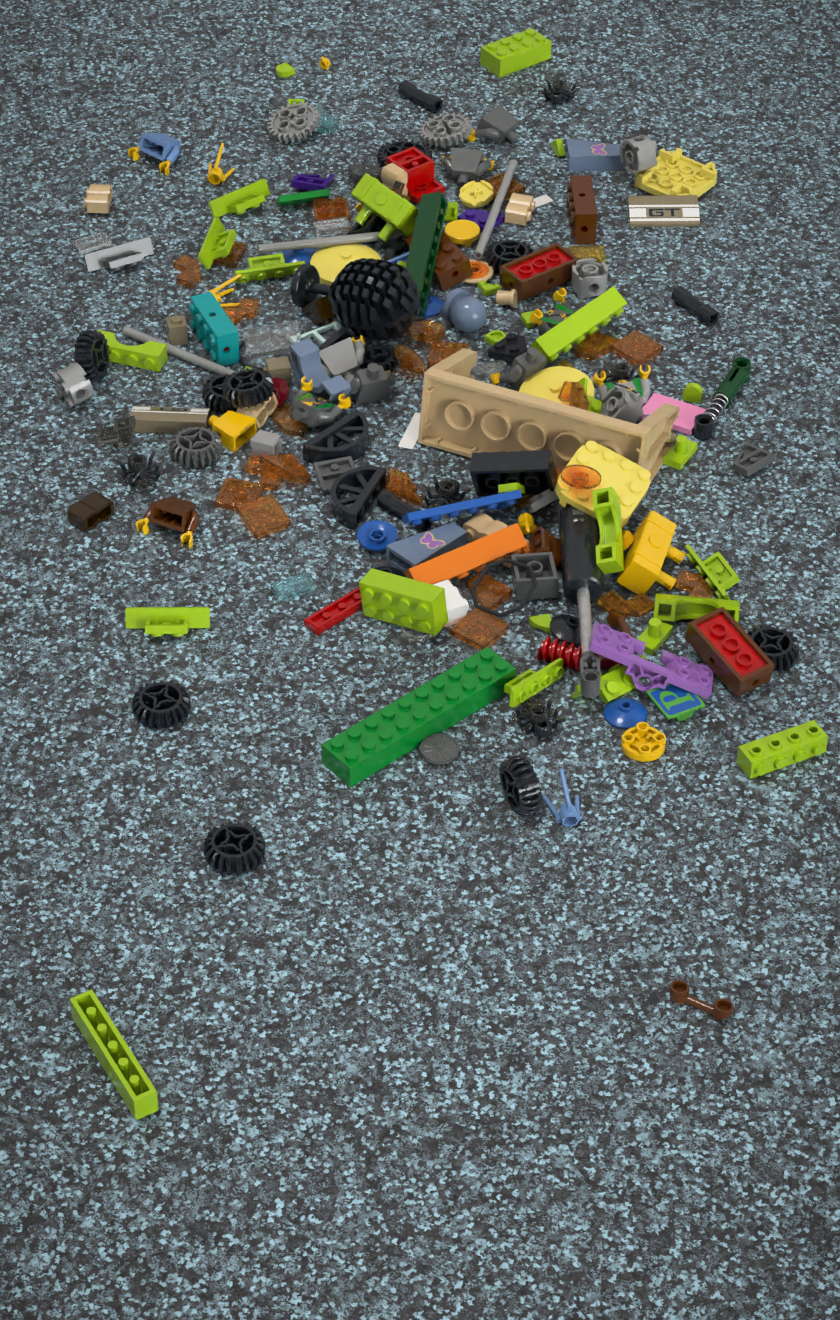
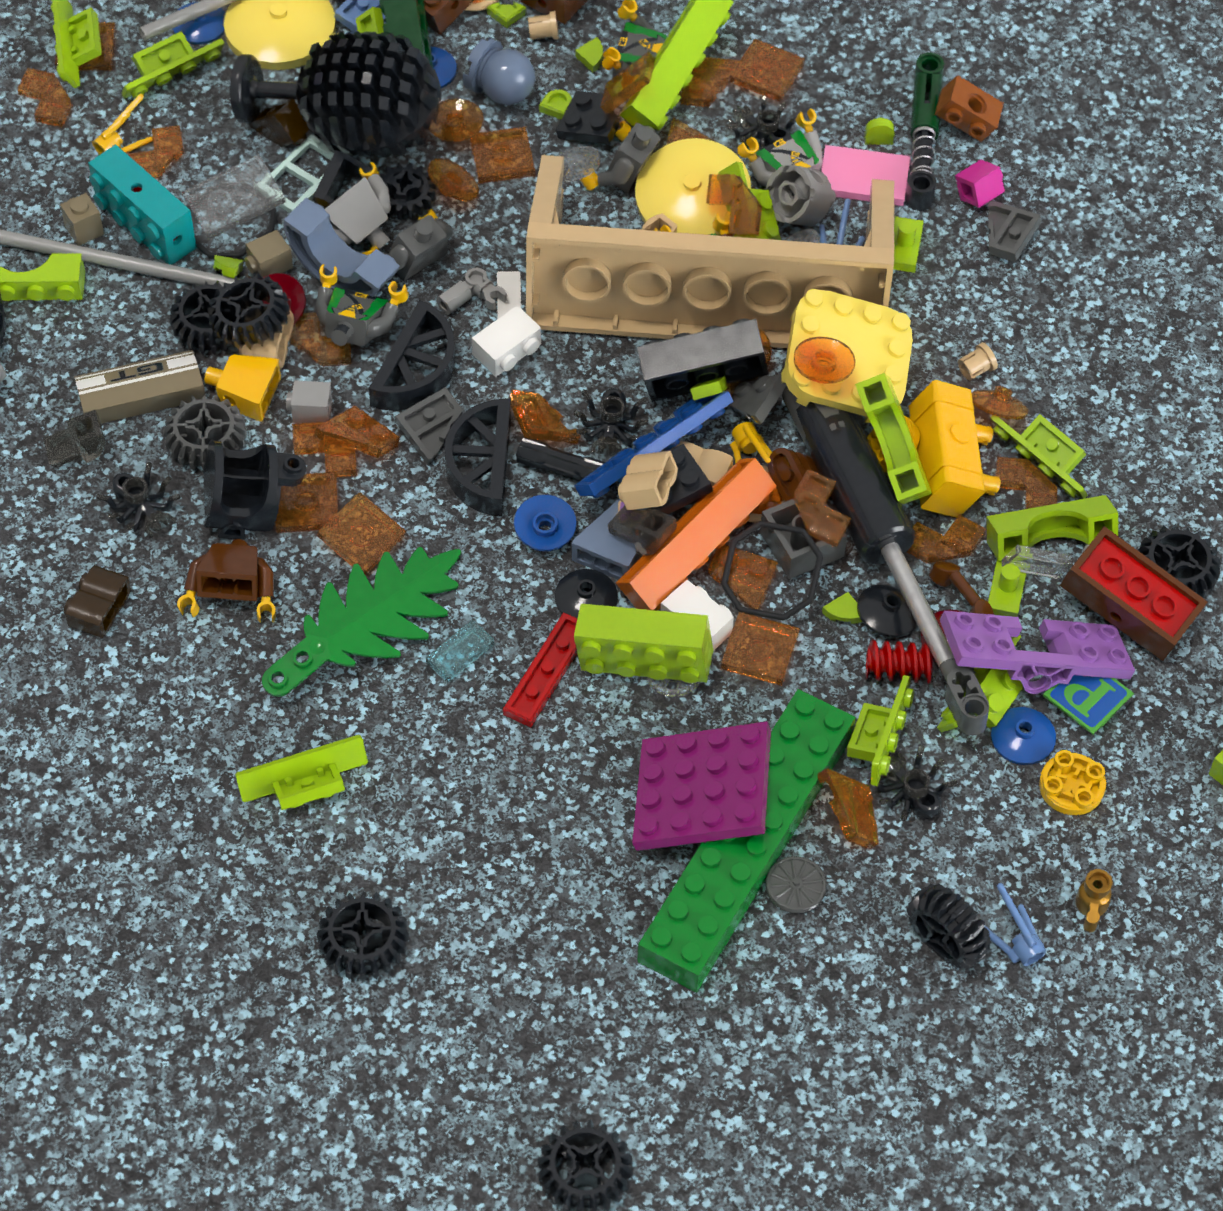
camera: 20 degrees left, 15 degrees up
(201, 473) = (245, 487): none -> black animal
(243, 553) = (367, 613): none -> green plant
(397, 413) = (475, 284): none -> light grey bar
(400, 443) = (506, 341): none -> white brick
(402, 678) = (702, 786): none -> magenta plate
(431, 544) = (643, 529): none -> clear smoke brick
(444, 517) = (648, 480): none -> tan brick
(463, 528) = (689, 484): none -> black plate
(493, 716) = (852, 807): none -> clear orange wing
(539, 330) = (627, 83): none -> clear orange tile
(543, 559) = (818, 519): none -> clear orange tile
(624, 799) = (1094, 897): none -> pearl gold piece
(673, 621) = (1039, 561): none -> clear tile
(694, 519) = (977, 362): none -> tan bush
(696, 540) = (999, 403): none -> clear orange dish
(743, 430) = (980, 183): none -> dark pink brick
(755, 390) = (969, 108): none -> dark orange brick

